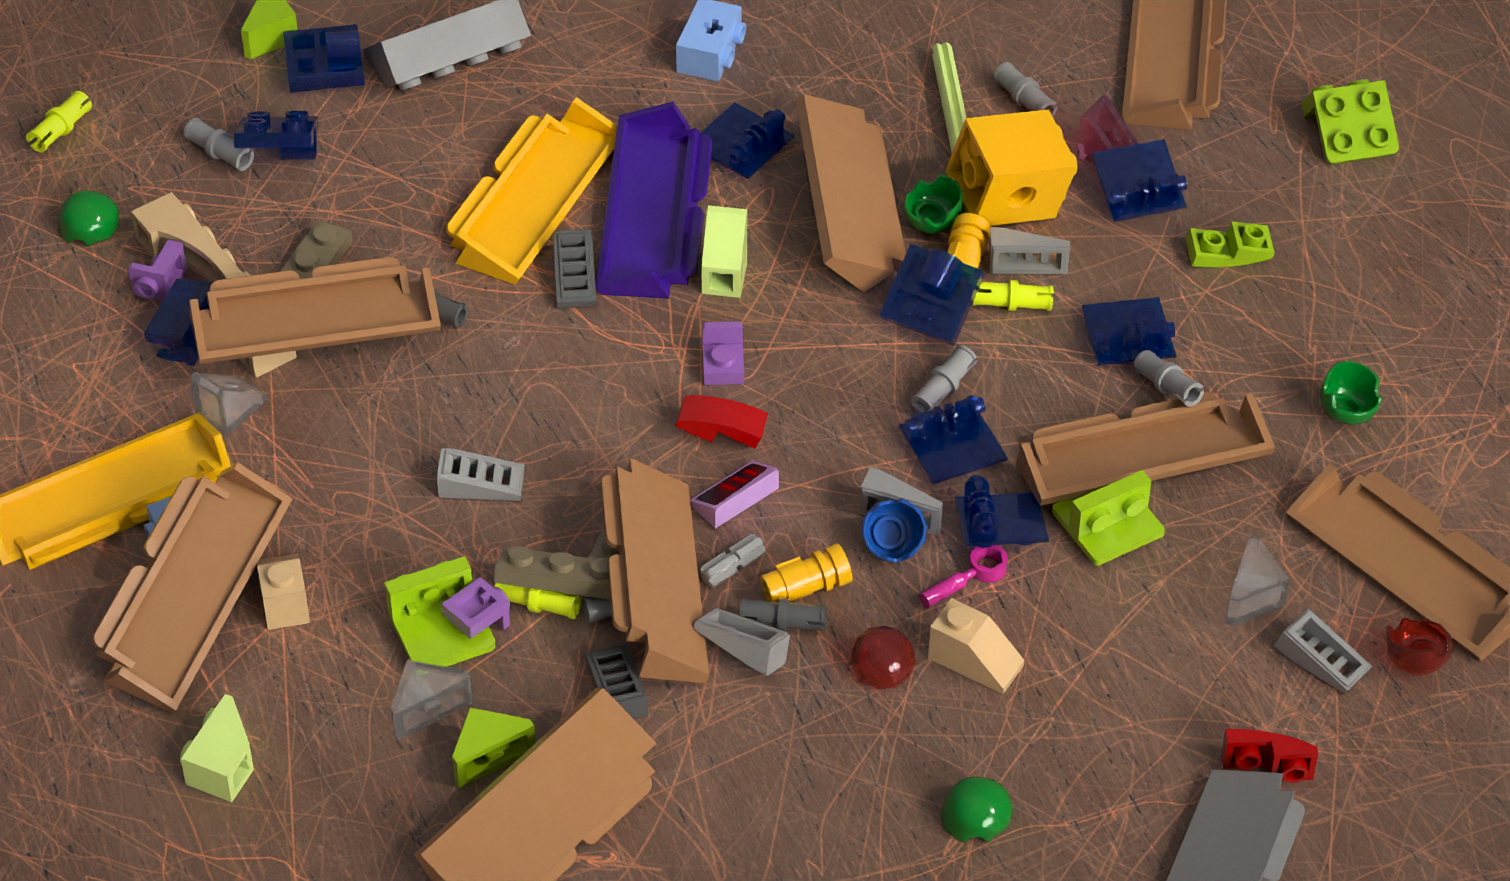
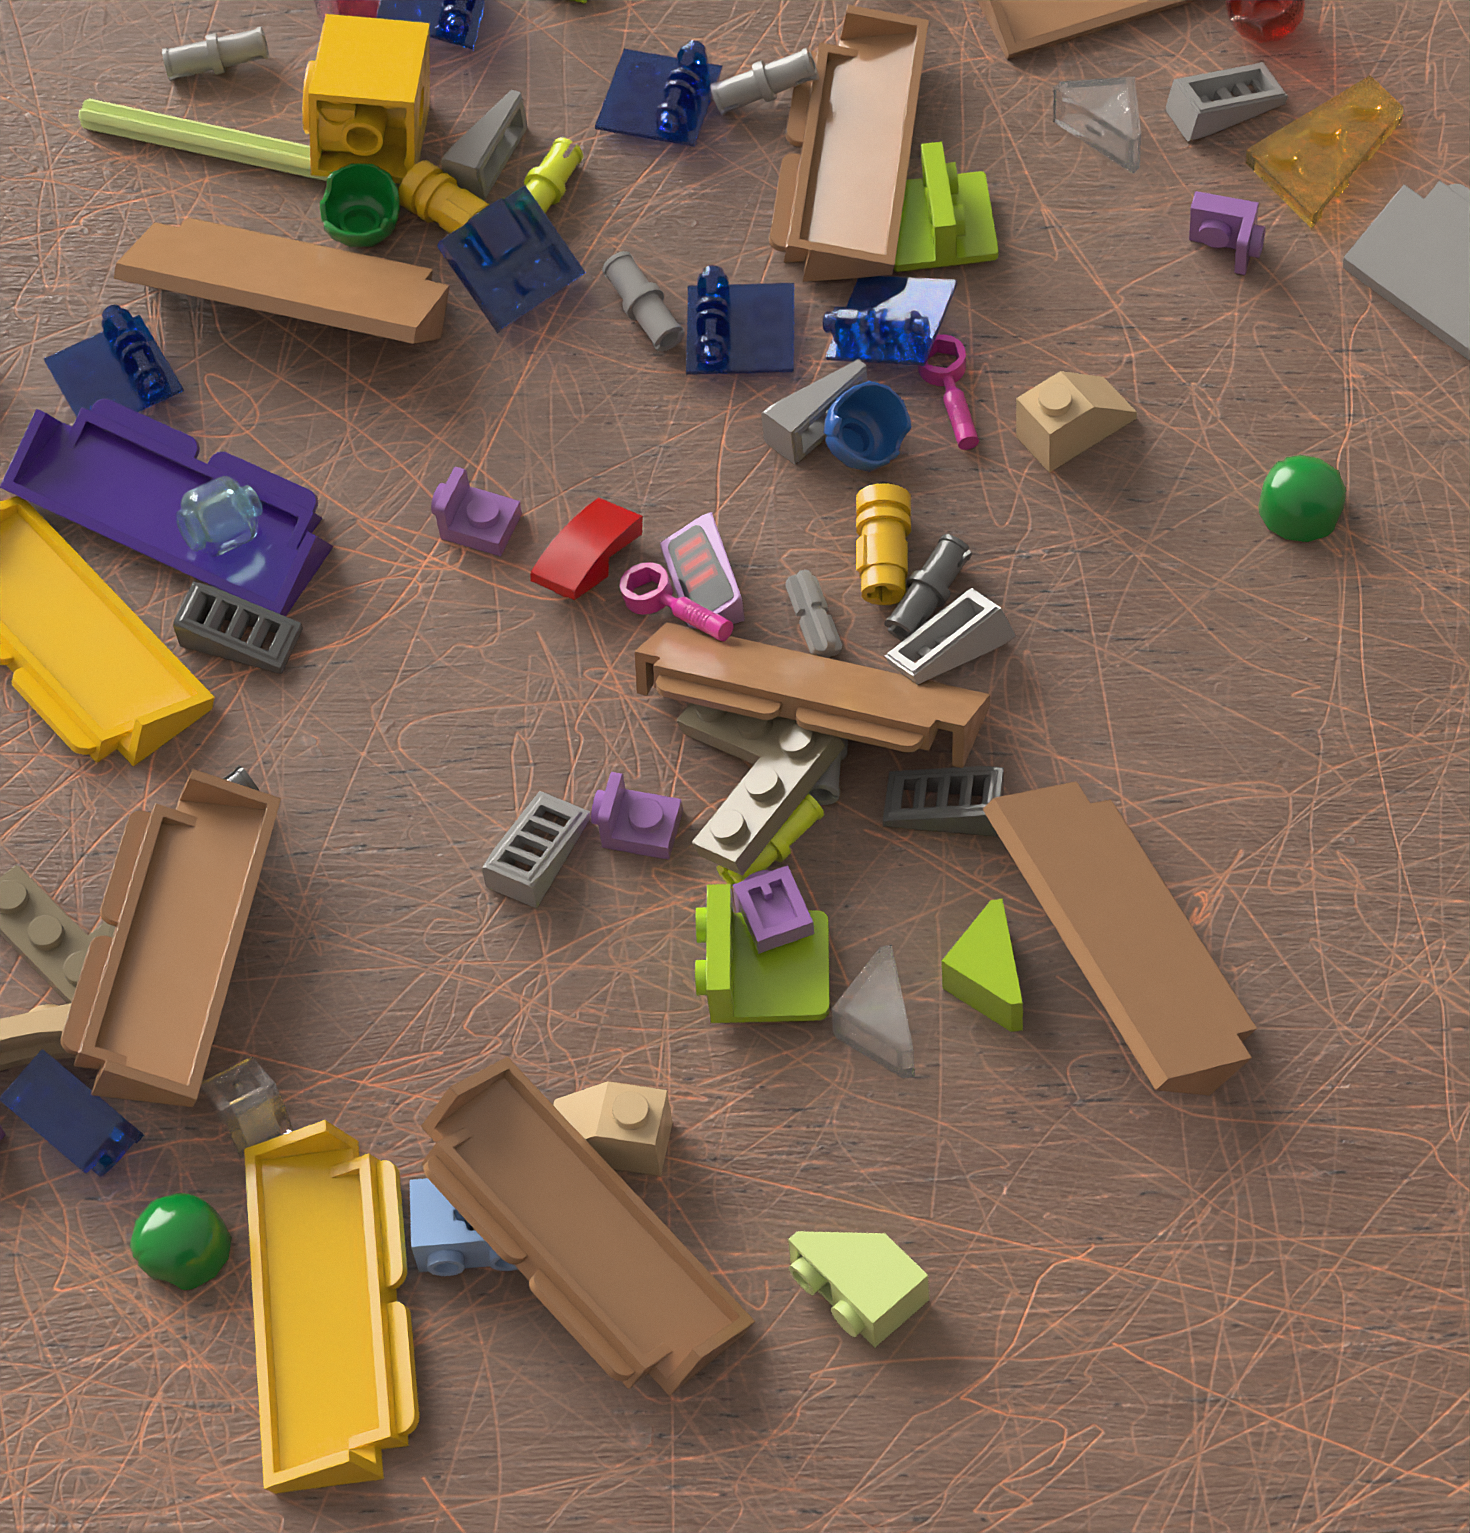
camera: 60 degrees left, 10 degrees up
(122, 406) = (180, 1241): none -> green hair
(524, 517) = (636, 819): none -> medium lavender bracket
(644, 222) = (219, 516): none -> clear light blue head
(703, 474) = (655, 600): none -> dark pink piece
(724, 251) = (323, 446): yellowish green slope -> none
(882, 657) = (1038, 512): clear red hair -> none
(1195, 689) = (1229, 224): none -> medium lavender bracket
(1277, 752) = (1355, 194): red slope -> none
(1339, 734) = (1323, 148): none -> clear yellow wing

